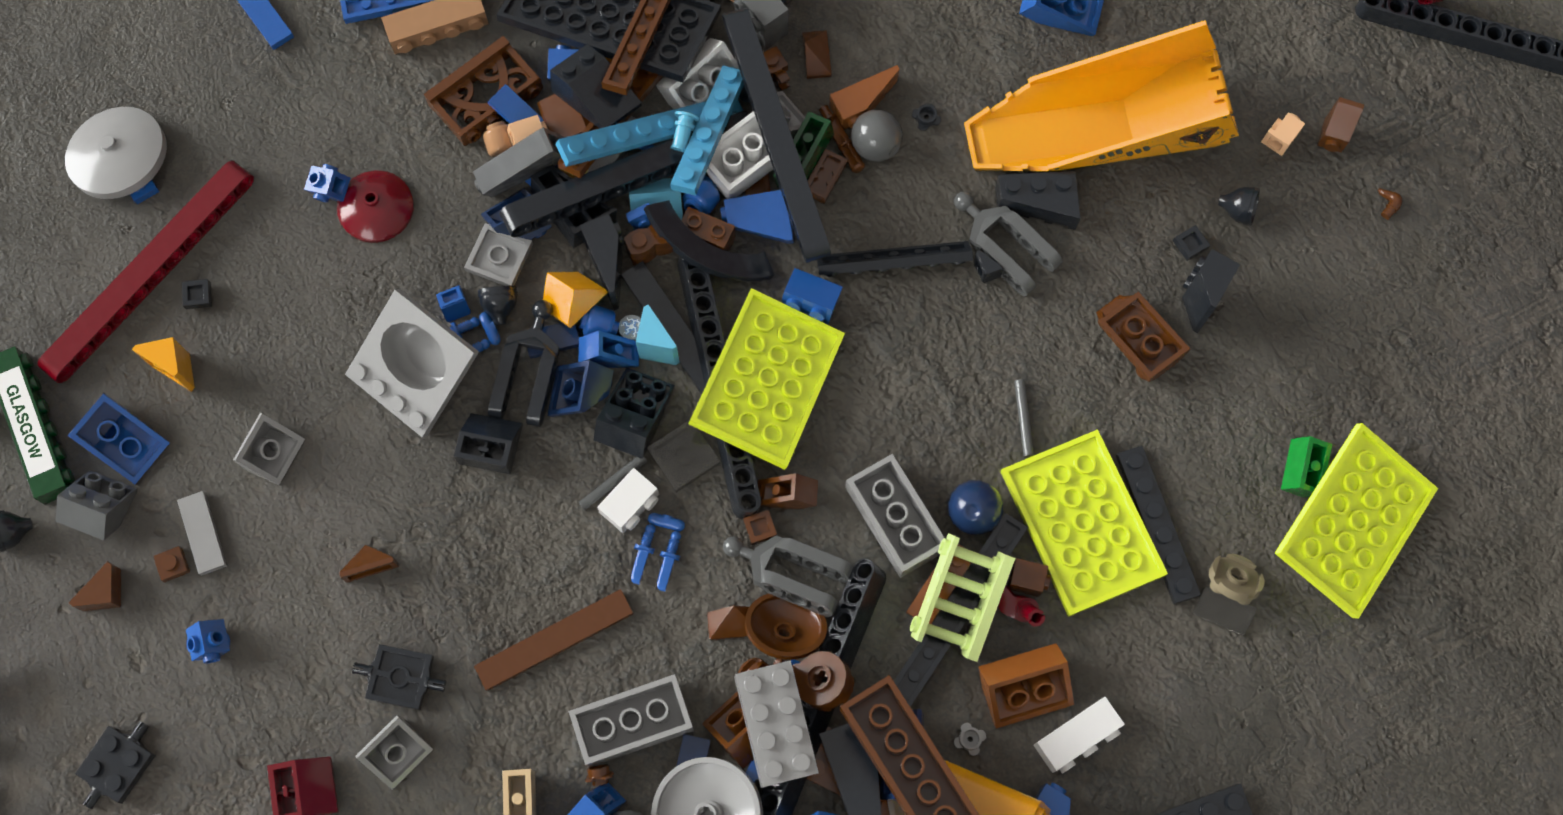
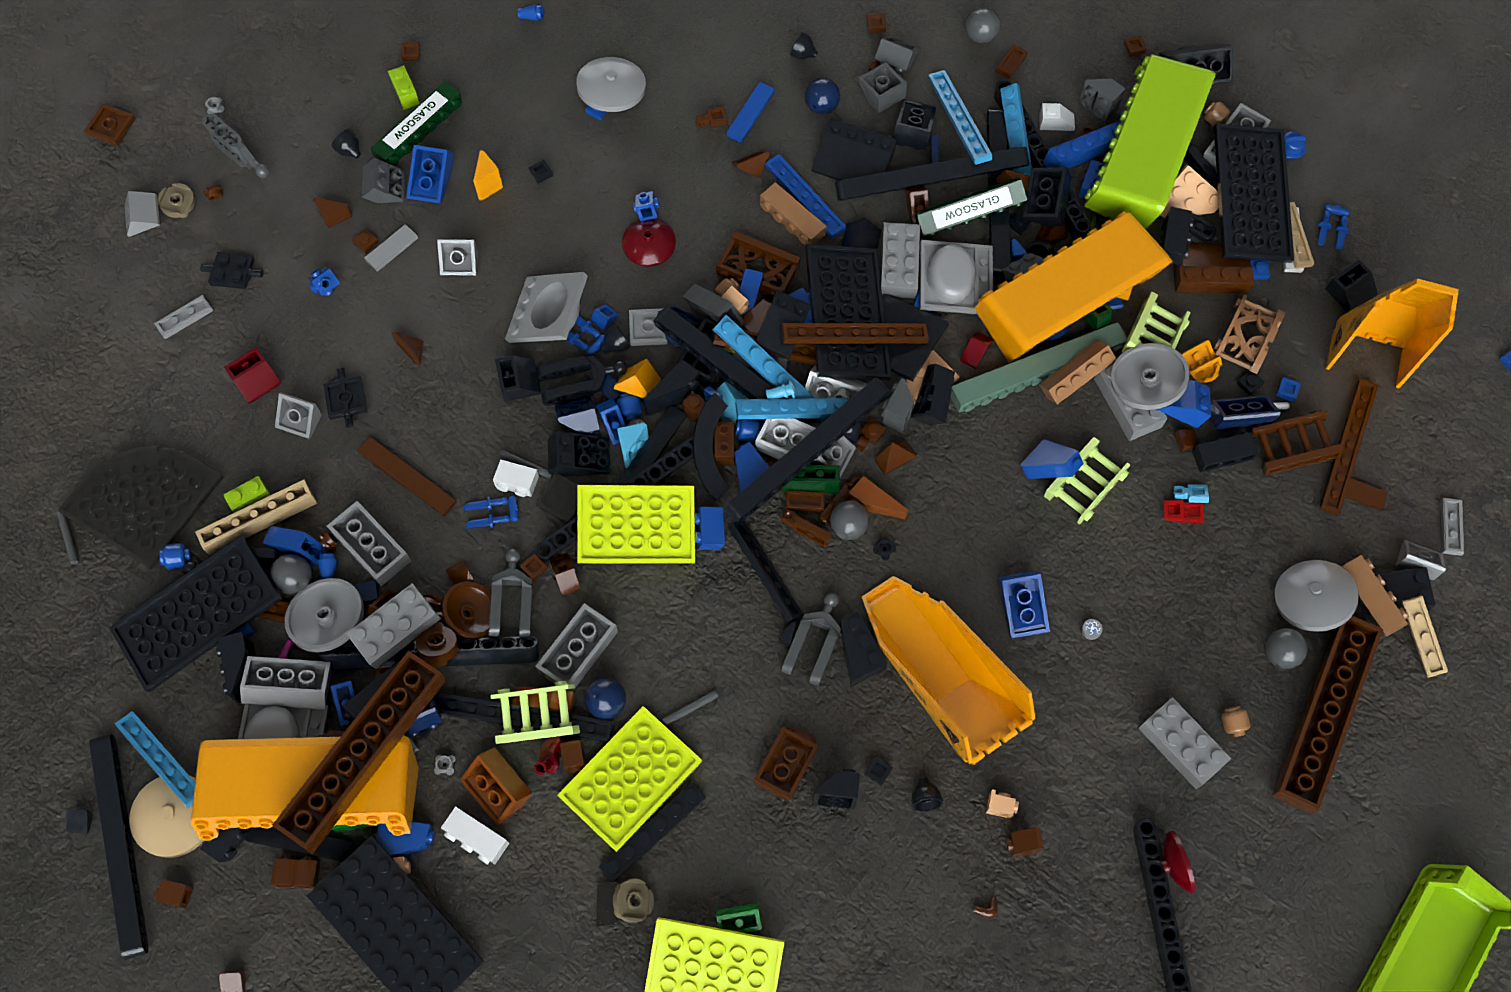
camera: 65 degrees right, 5 degrees down
(145, 272) = (544, 138): dark red beam -> none
(240, 50) = (714, 117): none -> reddish brown plate
(331, 34) = (753, 163): none -> reddish brown slope
(634, 789) = (327, 565): none -> blue cone
(862, 189) = (807, 528): none -> reddish brown hinge

